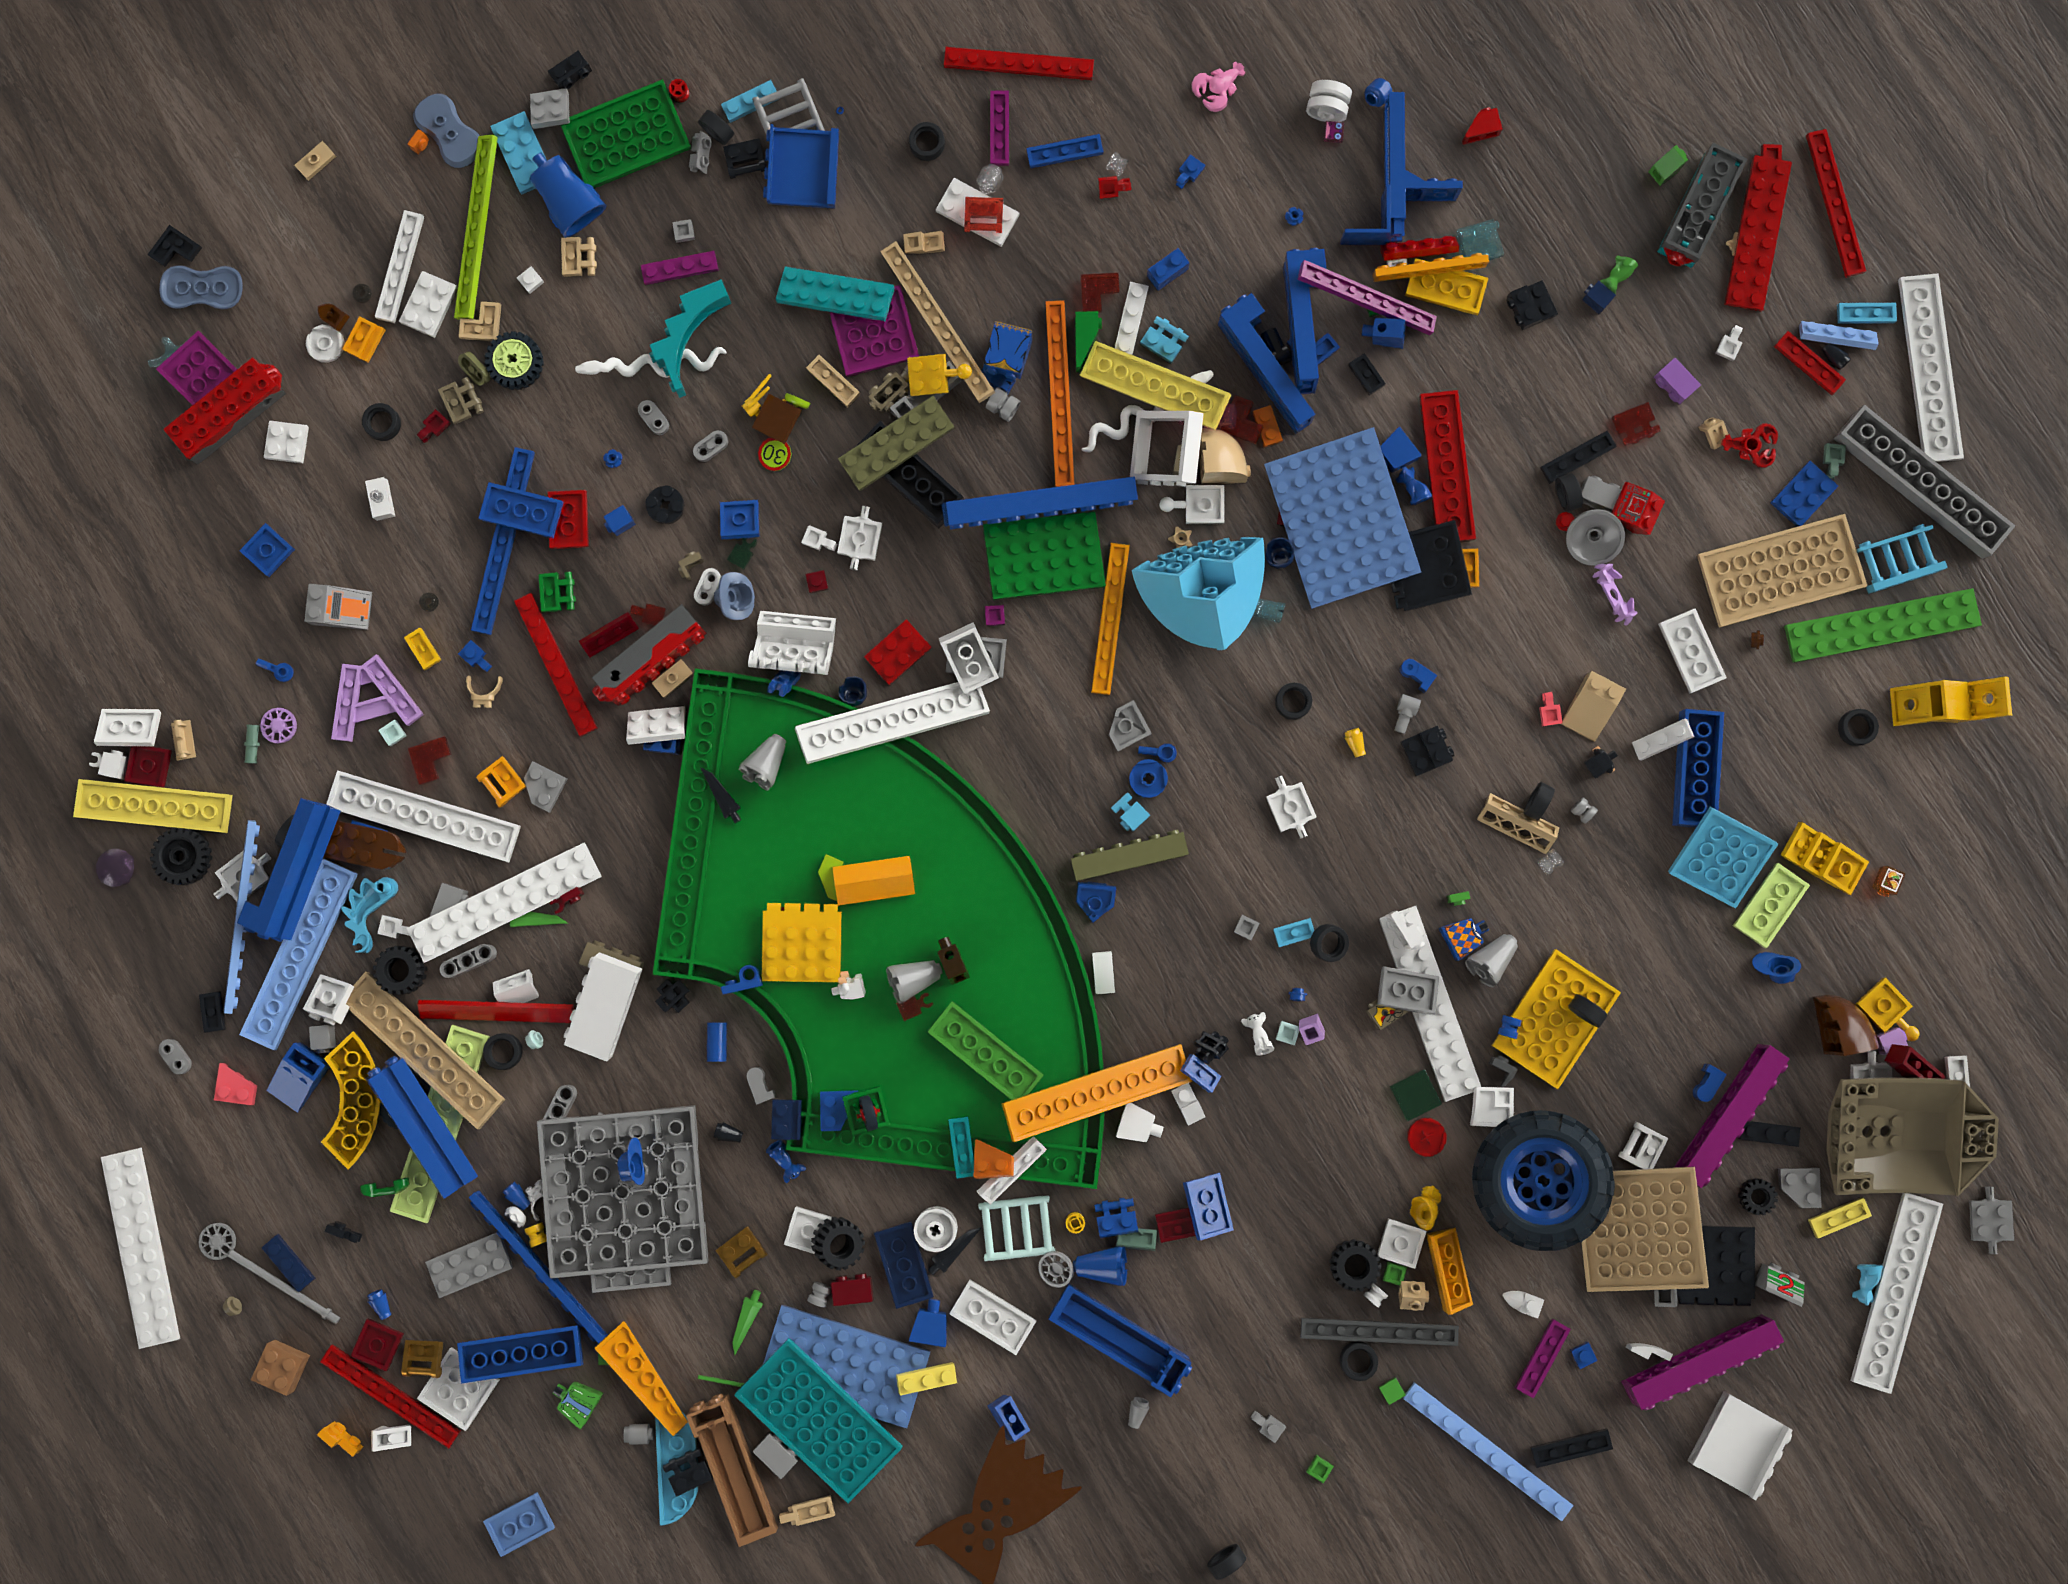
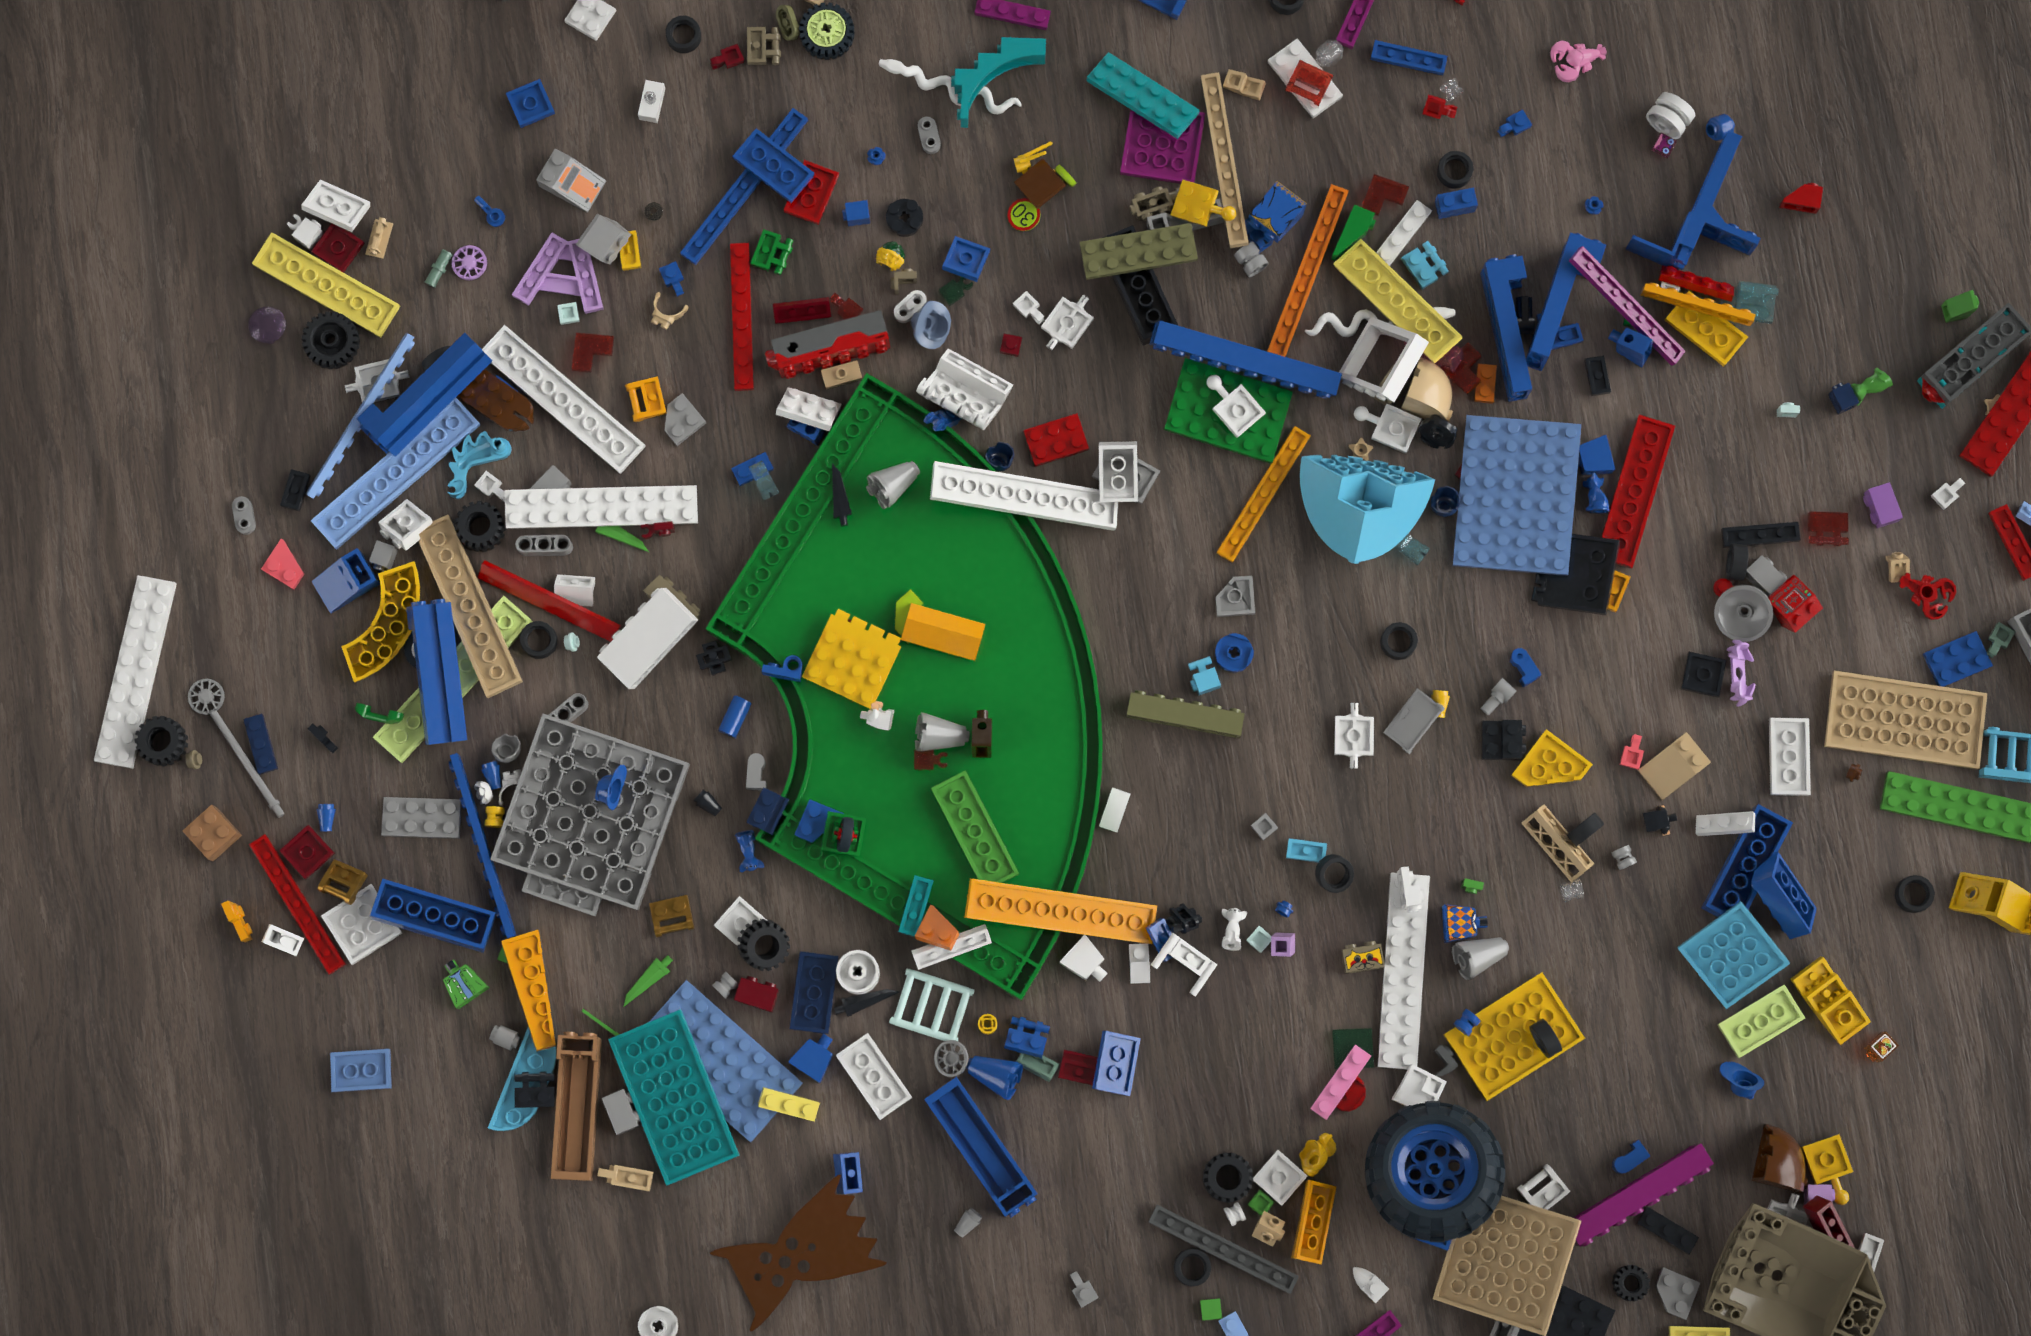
camera: 20 degrees right, 5 degrees down
(178, 1308) = (146, 737): none -> black tyre
(393, 649) = (603, 239): none -> light grey slope
(518, 1166) = (506, 748): none -> light grey hair
(629, 803) = (742, 470): none -> blue plate
(644, 810) = (763, 480): none -> clear light blue leg
(668, 547) = (891, 255): none -> yellow piece
(709, 444) = (968, 181): light grey plate -> none
(833, 381) = (1106, 172): tan plate -> none
(994, 615) = (1159, 445): magenta plate -> none
(1052, 552) = (1236, 409): none -> white plate
(1095, 898) = (1137, 739): blue plate -> none
(1158, 224) = (1455, 155): none -> black tyre
(1165, 752) = (1260, 636): blue plate -> none
(1231, 1079) = (1189, 957): none -> white plate
(1245, 491) = (1446, 432): none -> black plate
(1338, 776) = (1418, 716): none -> light grey door
(1408, 990) = (1387, 947): light grey tile -> none
(1418, 1132) = (1340, 1082): none -> bright pink plate
(1480, 752) = (1551, 763): none -> yellow plate
(1531, 305) = (1778, 378): black plate -> none
(1553, 330) = (1788, 410): none -> light aqua plate
(1582, 609) = (1703, 674): none -> black plate
(1745, 783) = (1784, 896): none -> blue slope

